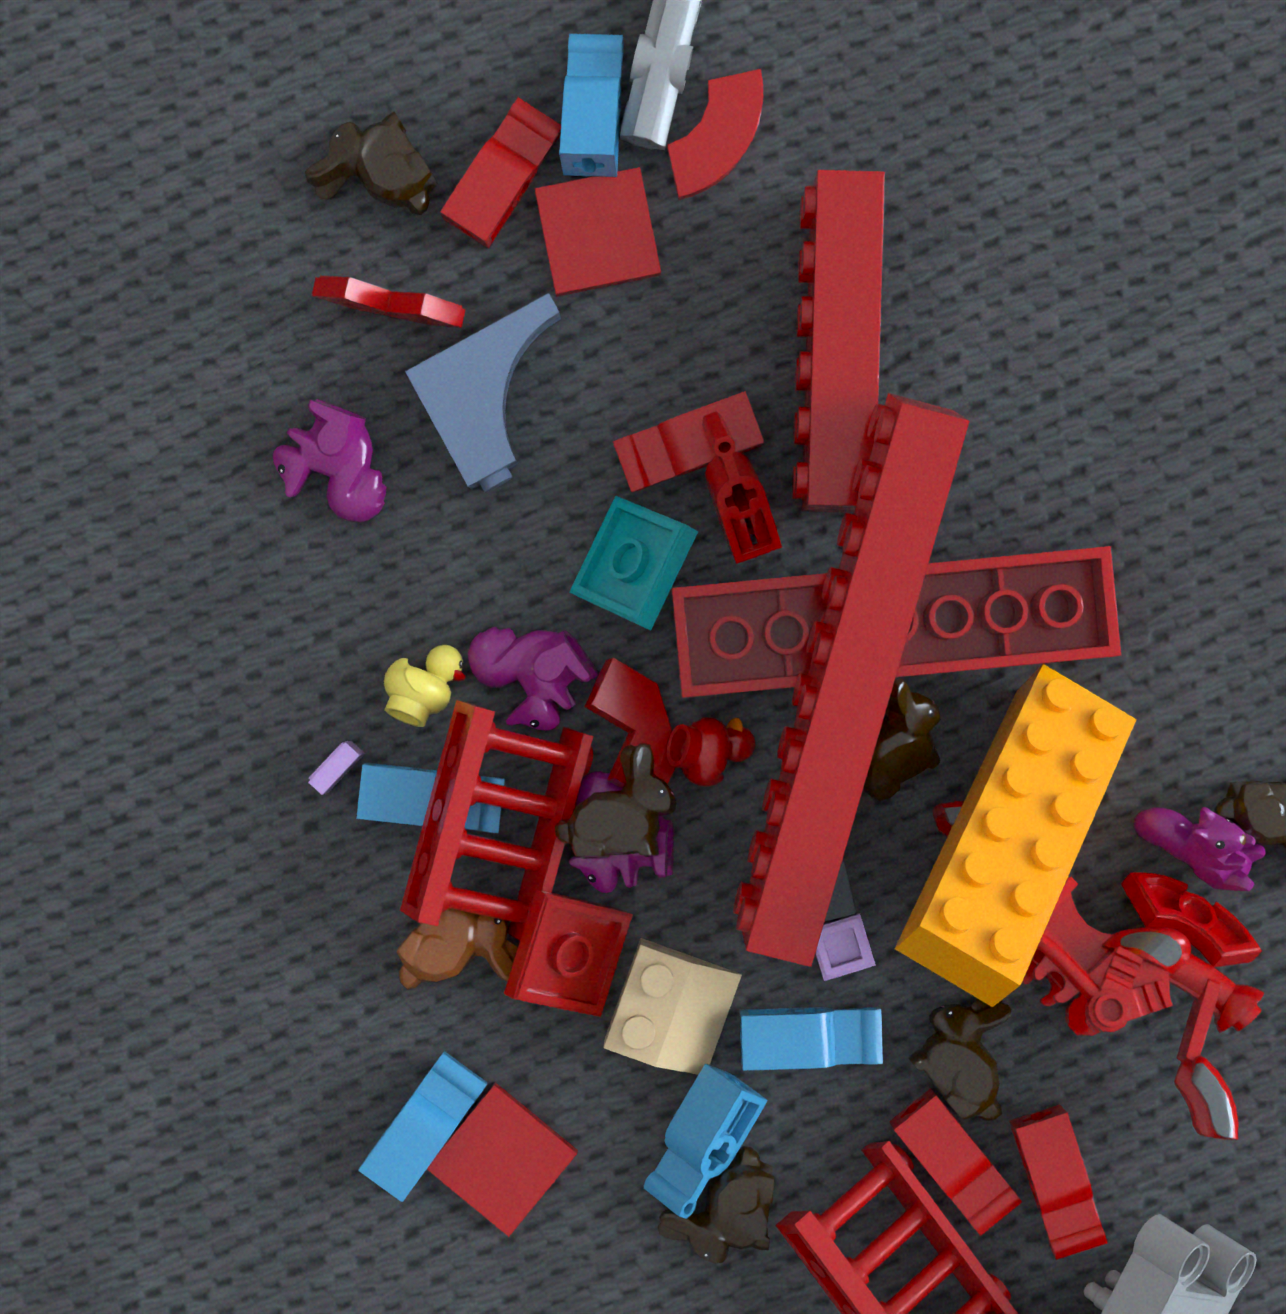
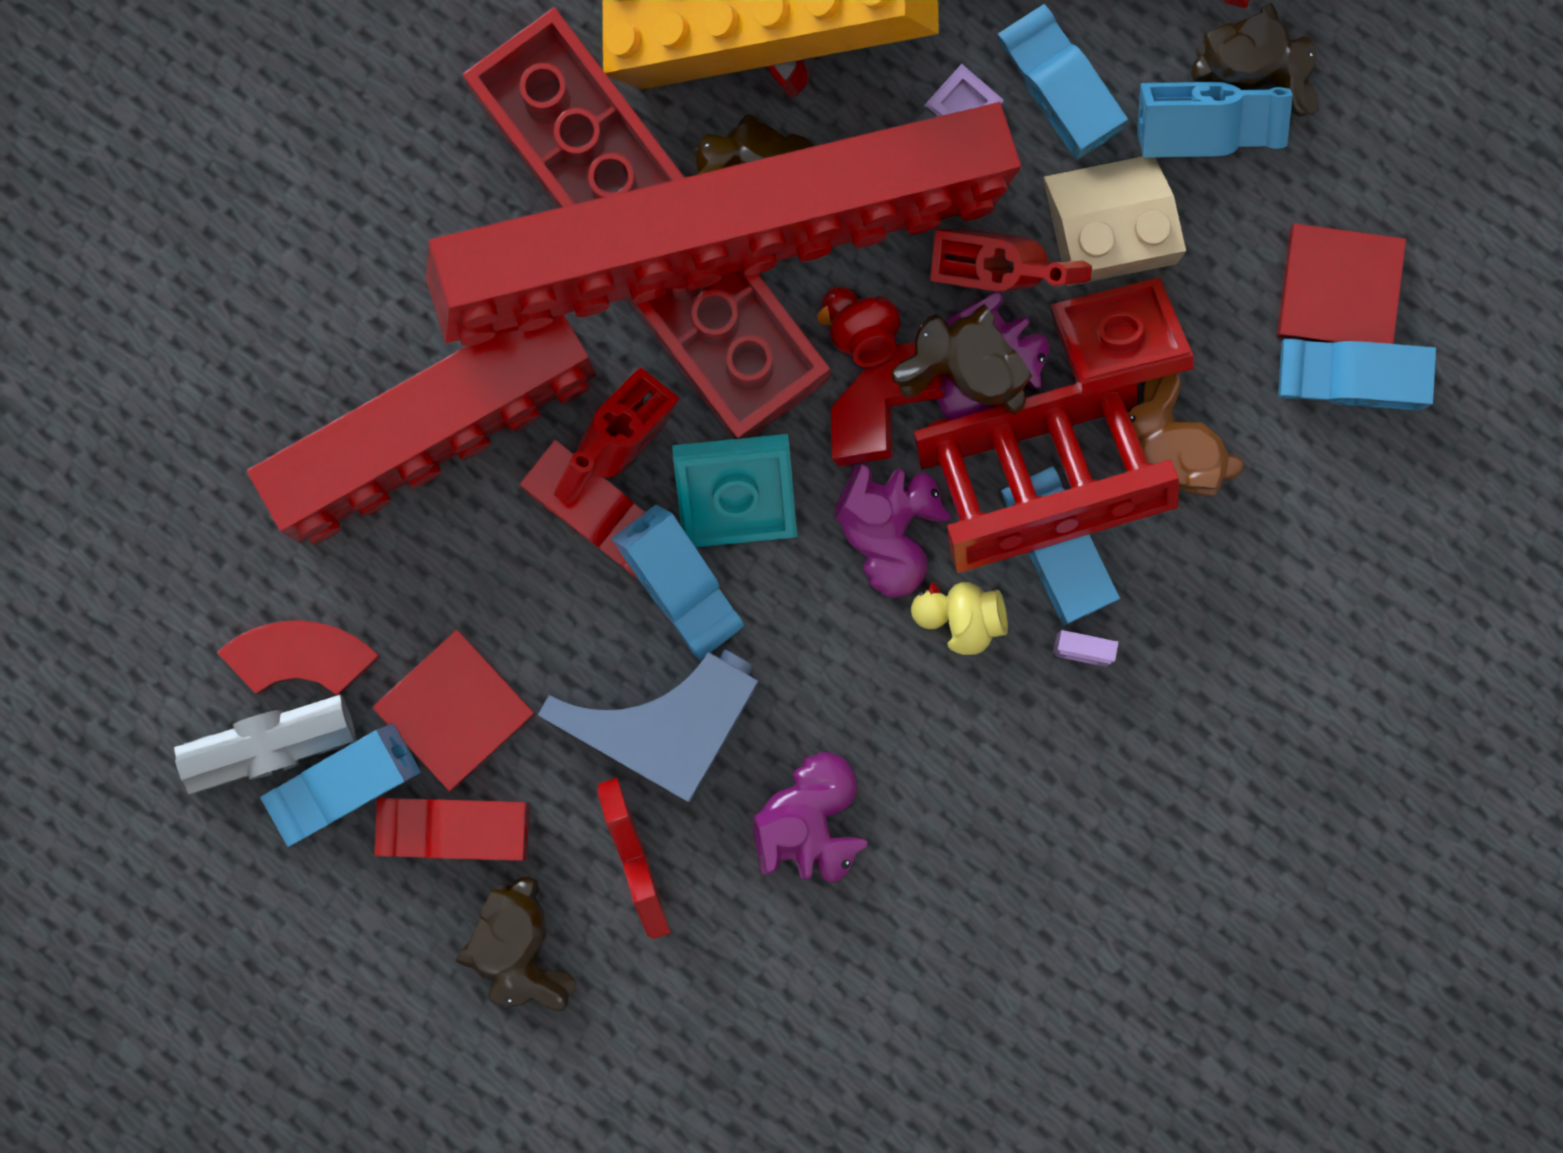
camera: 120 degrees left, 5 degrees down
(590, 472) = (678, 580): none -> dark azure piece
(688, 891) = (992, 266): none -> red piece

